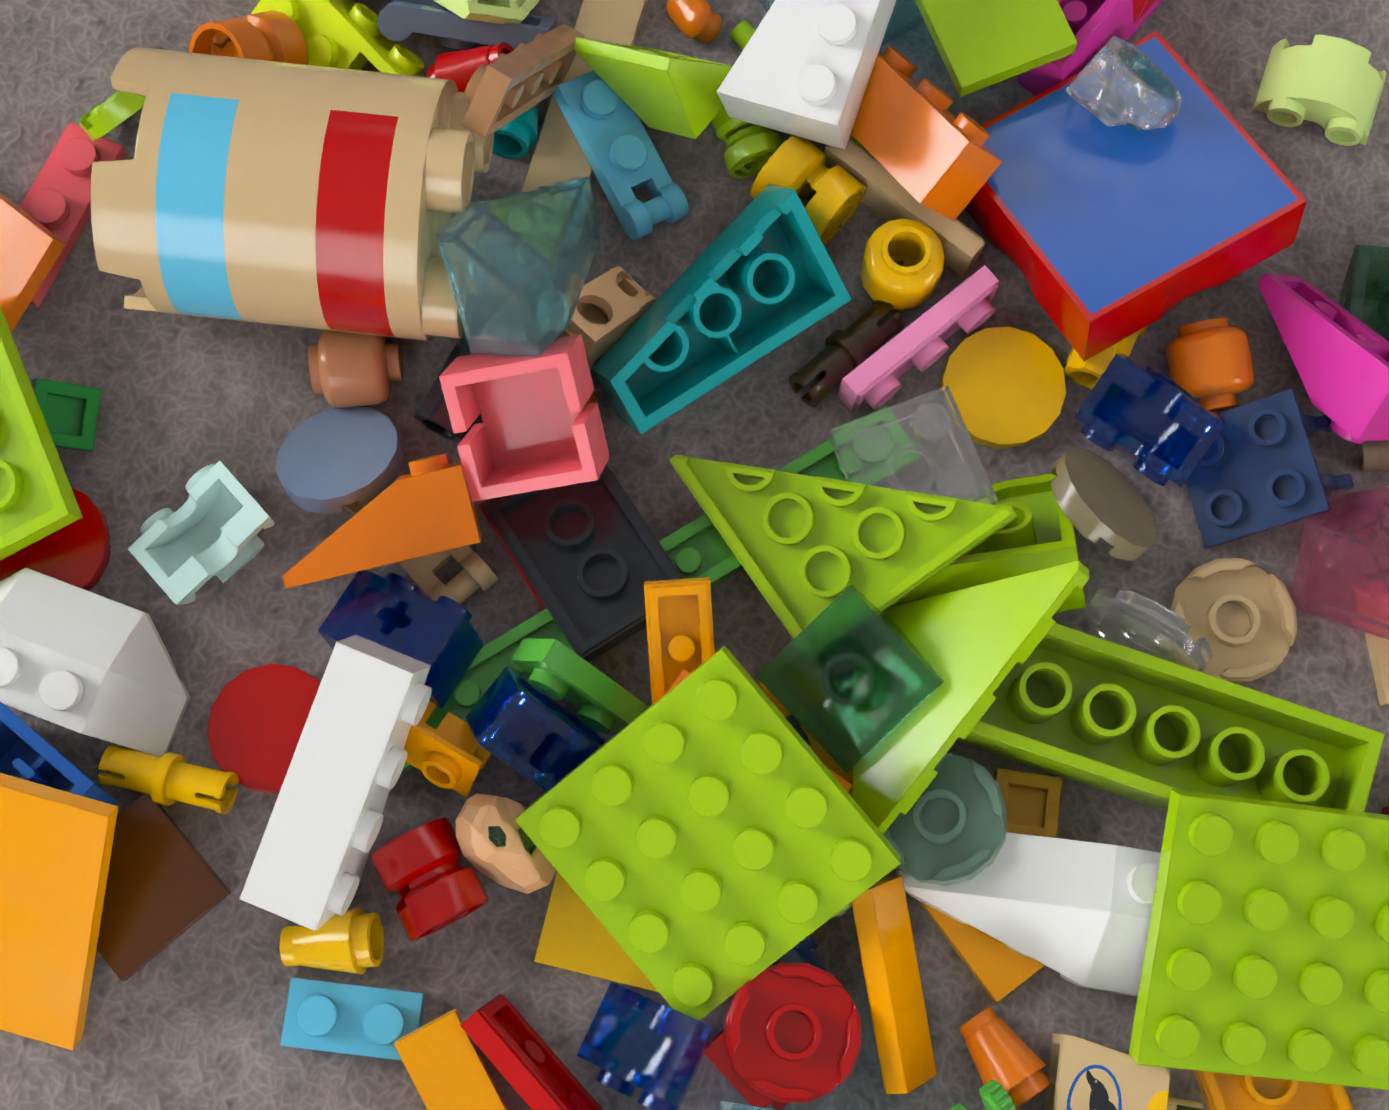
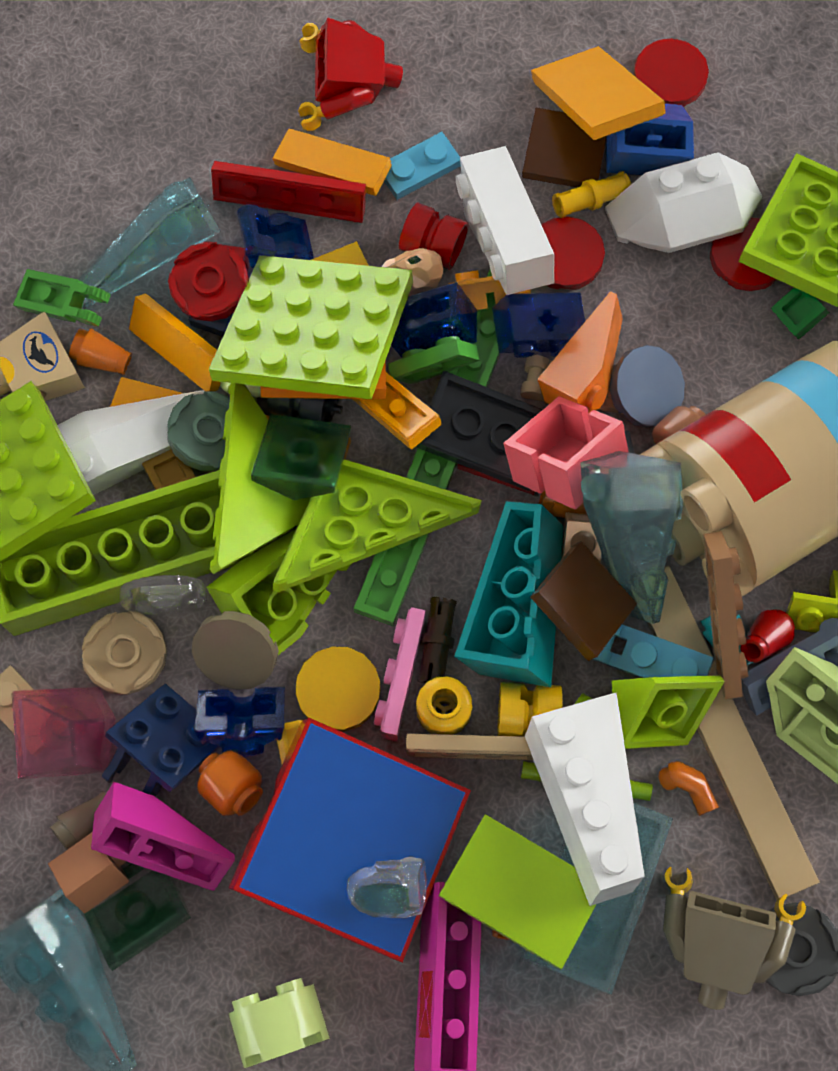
camera: 145 degrees right, 5 degrees down
(204, 537) = (679, 302): light aqua cylinder -> none
(341, 944) = (443, 191): yellow cone -> none
(654, 238) = (584, 601): none -> reddish brown tile
(914, 449) = (354, 600): clear plate -> none
(919, 140) = (490, 775): orange brick -> none

